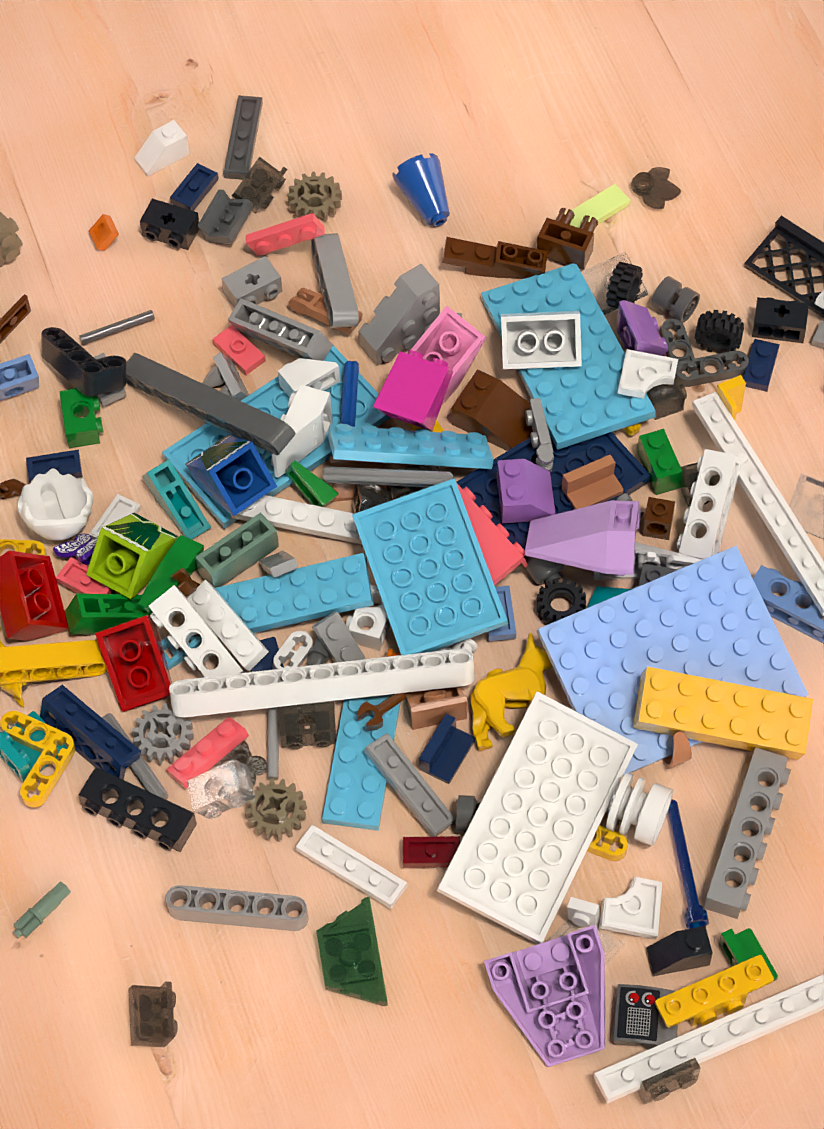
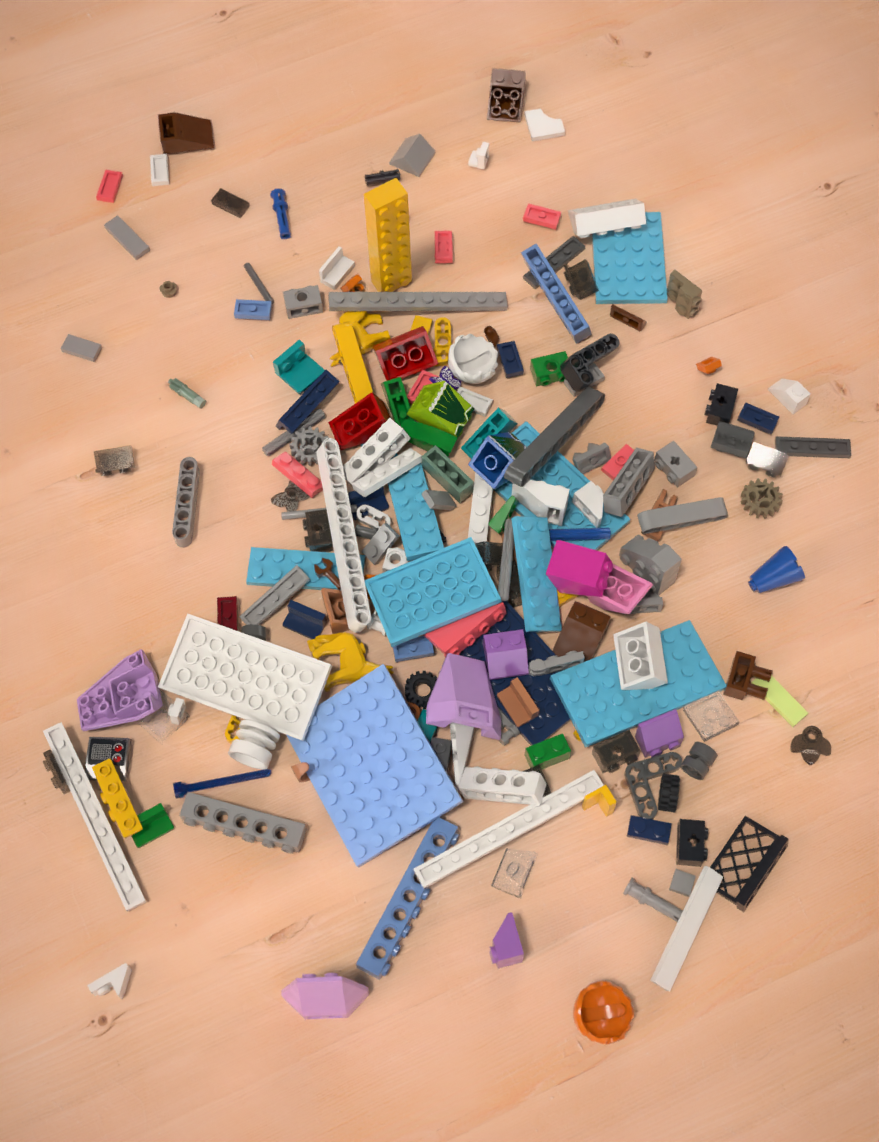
camera: 85 degrees right, 5 degrees up
(46, 747) = (295, 381): yellow beam -> none
(103, 786) = (247, 461): black brick -> none
(117, 327) = (630, 383): dark grey bar -> none
(187, 585) = (417, 444): reddish brown bar -> none
(221, 789) = (265, 481): clear brick -> none
(282, 799) = (252, 524): dark tan gear -> none
(285, 234) = (716, 478): coral plate -> none
(351, 866) = (216, 567): white plate -> none
(352, 955) = (153, 573): clear green wing -> none
(501, 261) = (720, 626): reddish brown slope -> none
(624, 284) = (697, 716): black tyre -> none
(635, 911) = (184, 749): white tile -> none
(644, 371) = (619, 733): white tile -> none
(658, 518) = (497, 754): reddish brown brick -> none
(680, 951) = (153, 780): black slope -> none
(723, 712) = (327, 798): yellow brick -> none

